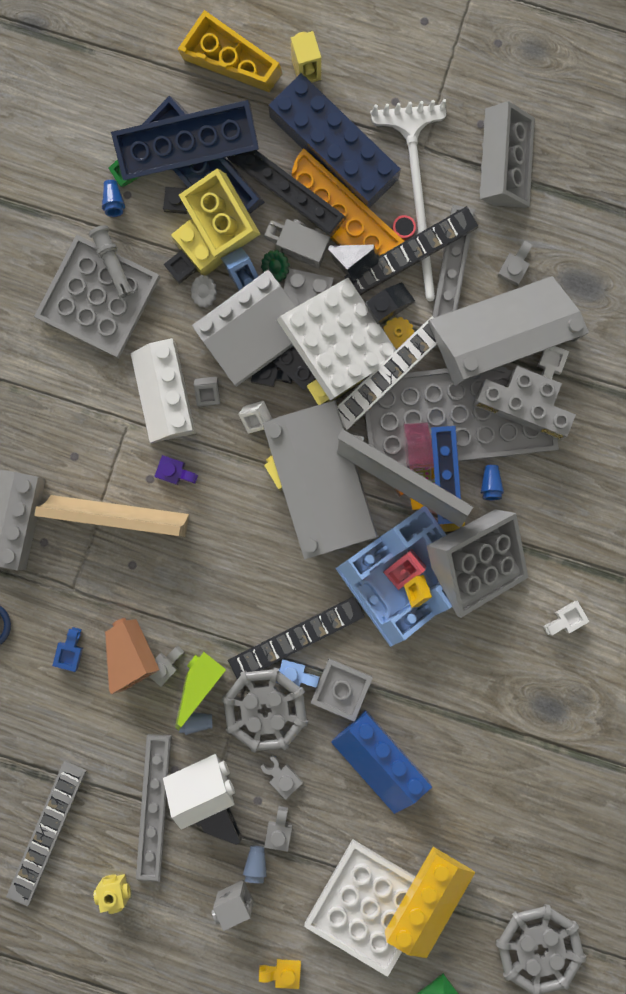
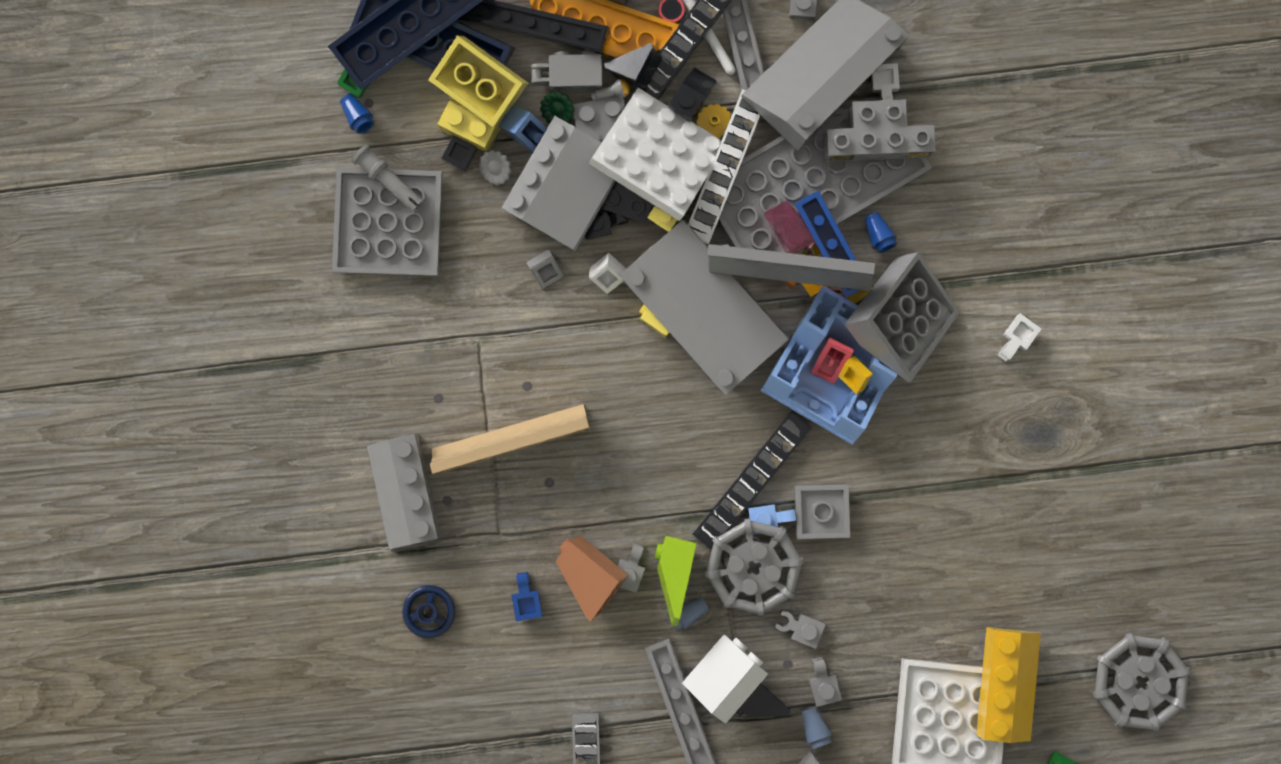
camera: 30 degrees left, 0 degrees up
(162, 391) = (499, 290): white slope -> none
(172, 471) = (546, 366): dark purple plate -> none
(173, 202) = (420, 86): black plate -> none
(332, 271) = (620, 88): none -> light grey piece
(381, 763) = (896, 567): blue slope -> none

